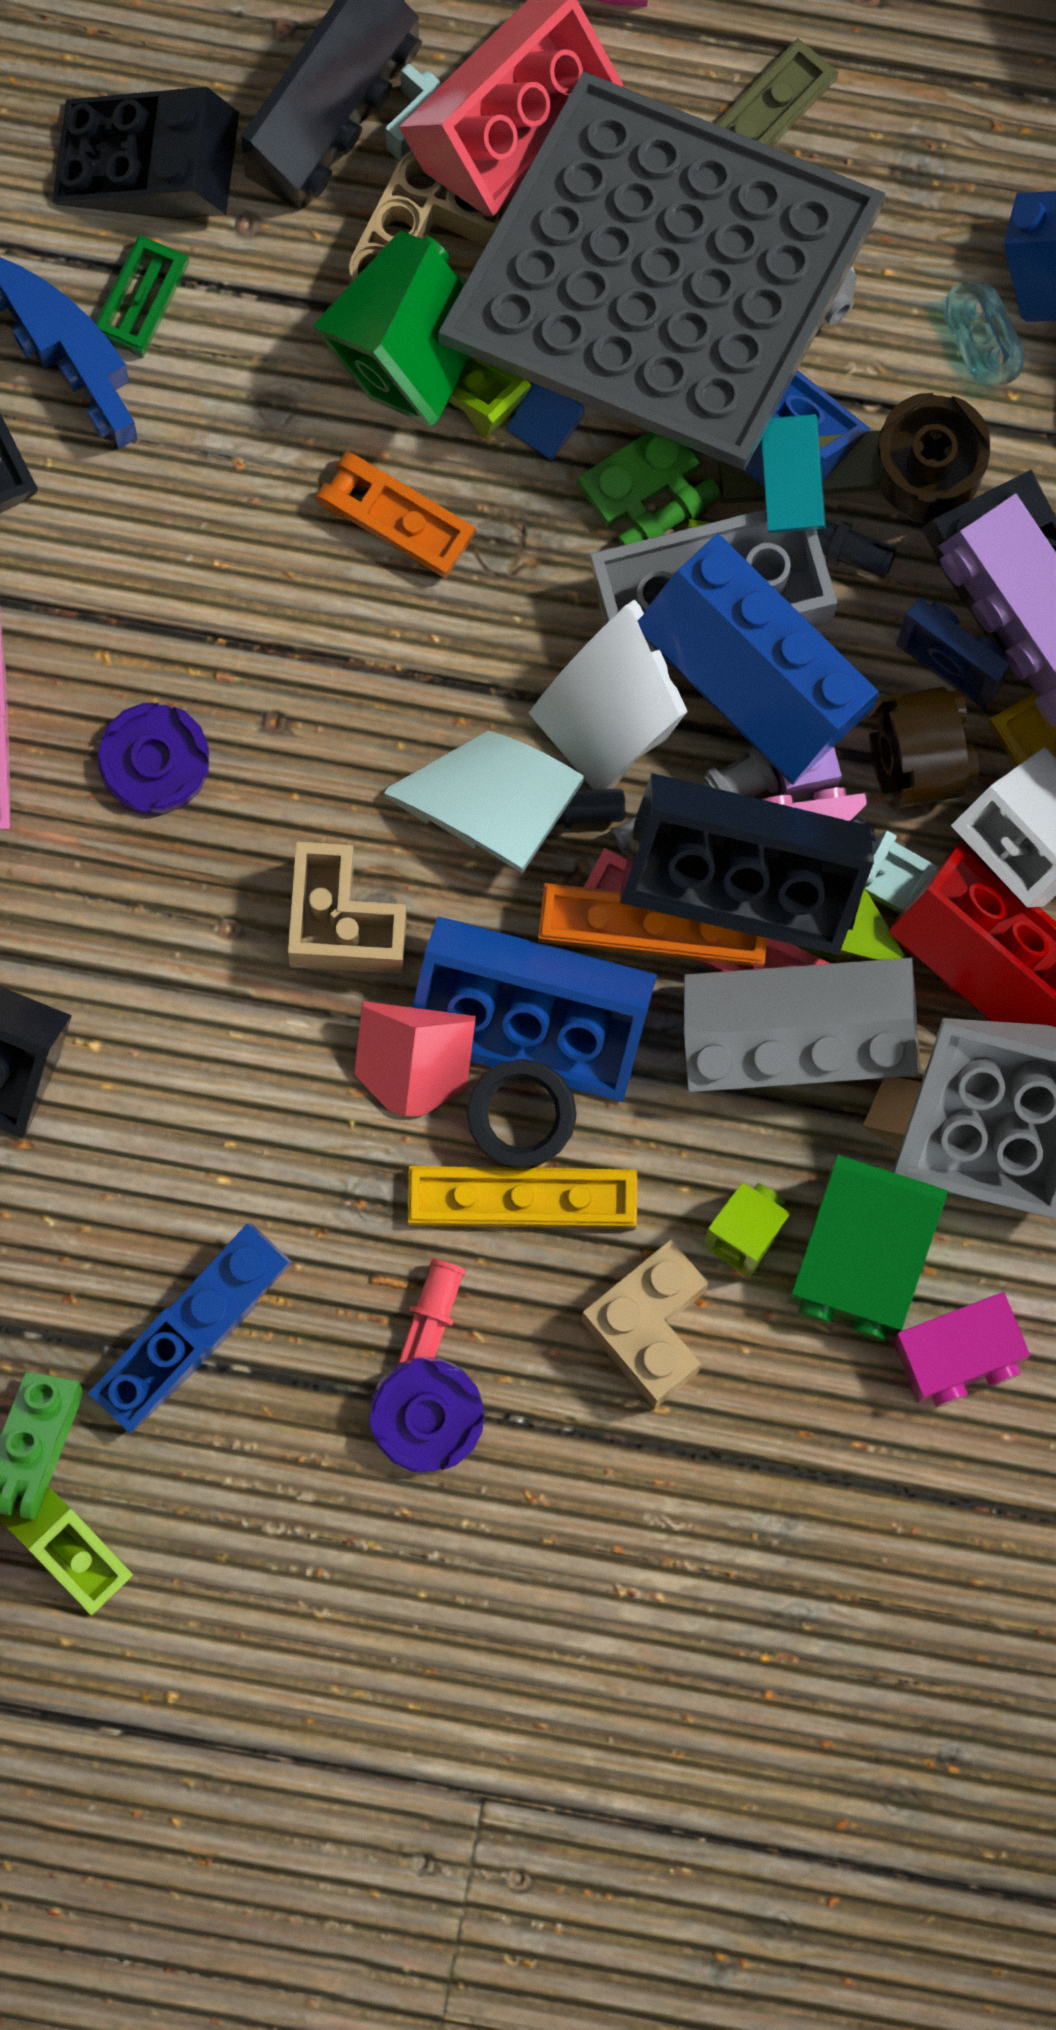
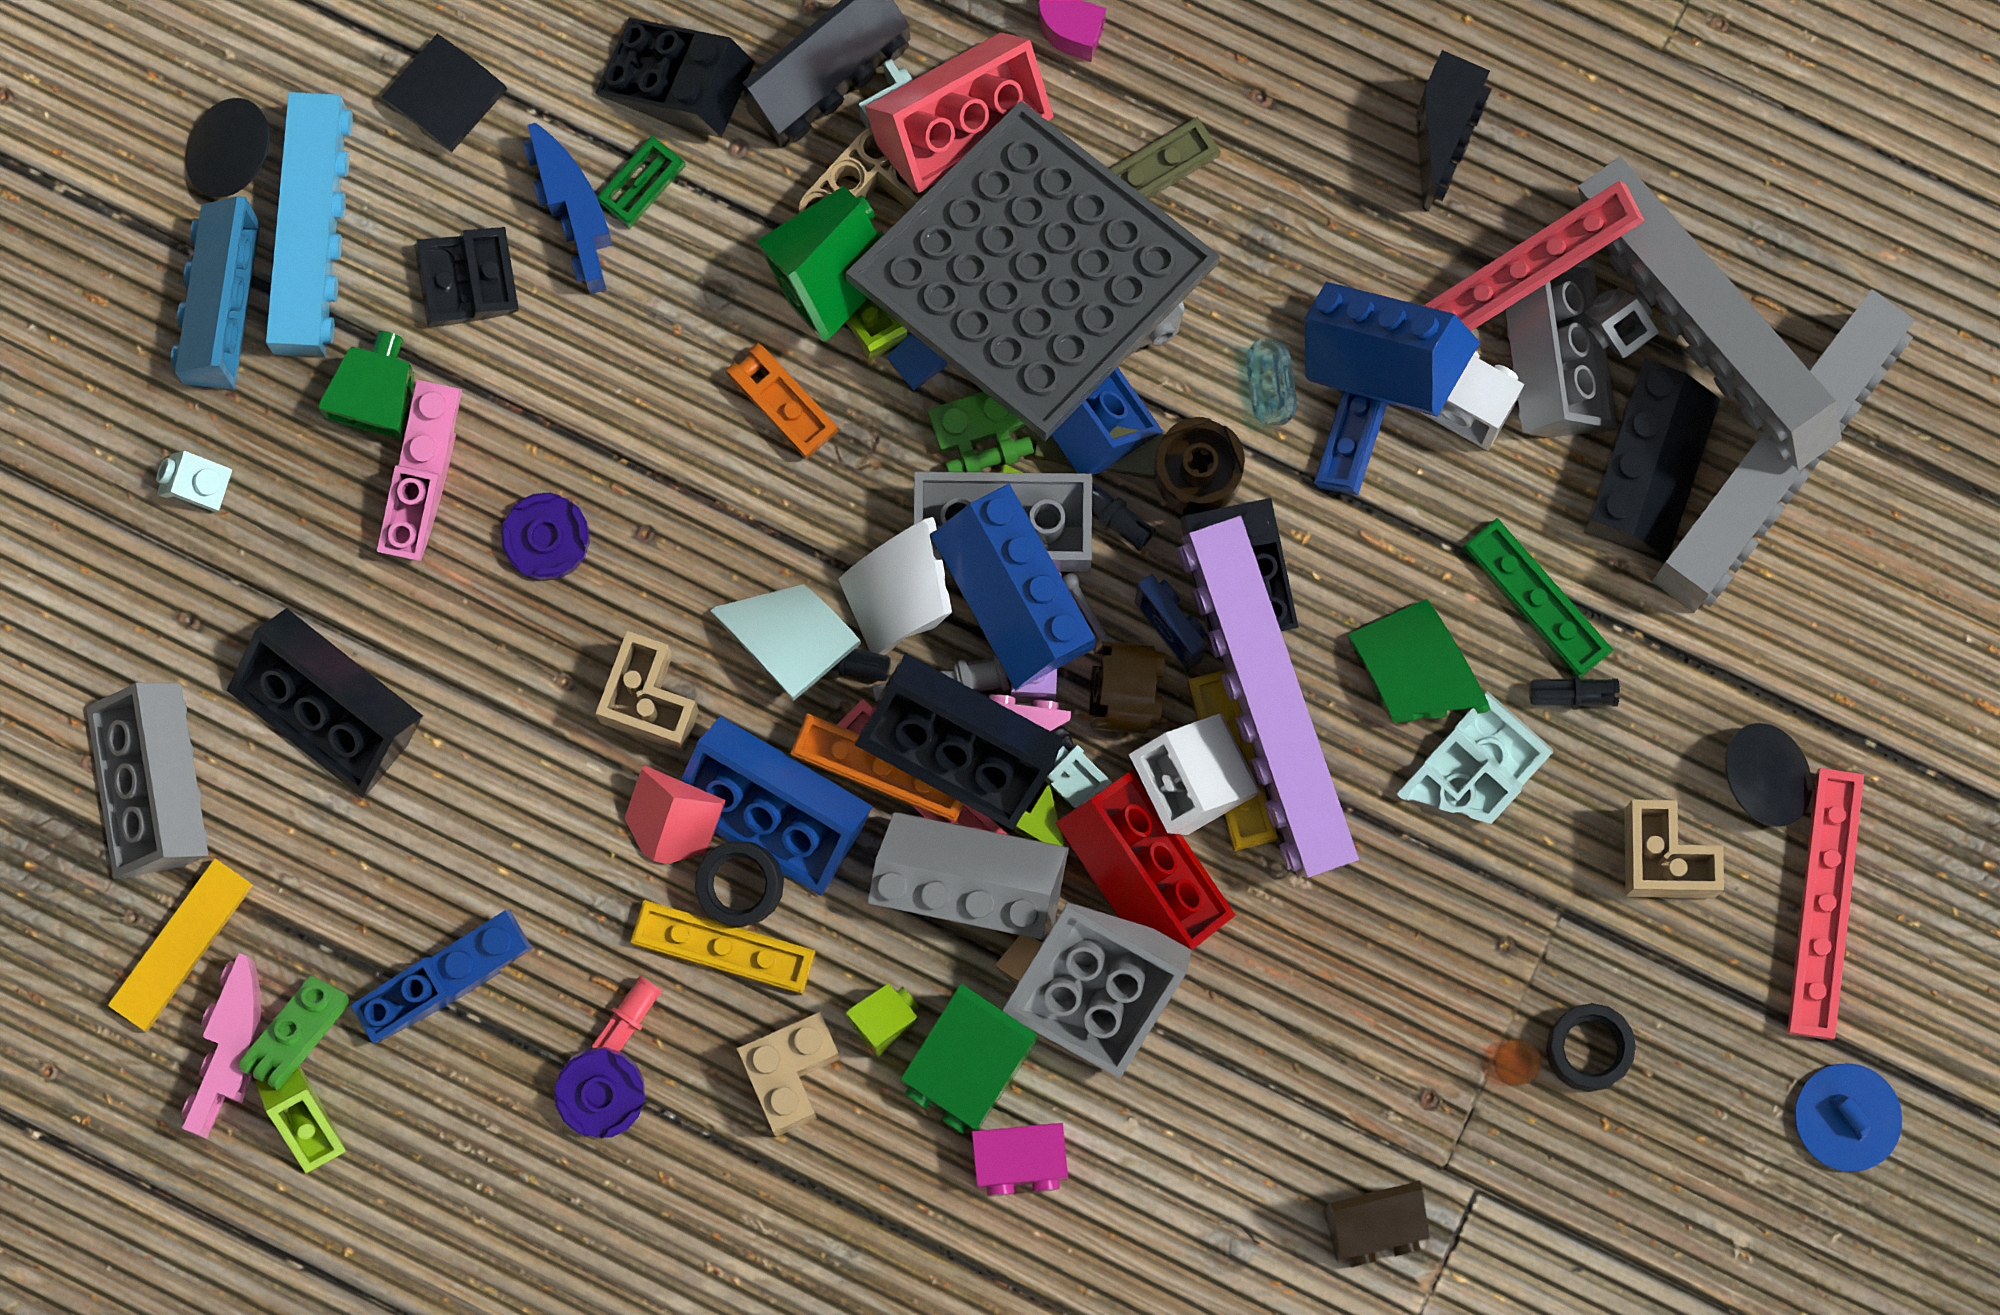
camera: 20 degrees right, 0 degrees up
(793, 474) = (1084, 453): teal tile -> none

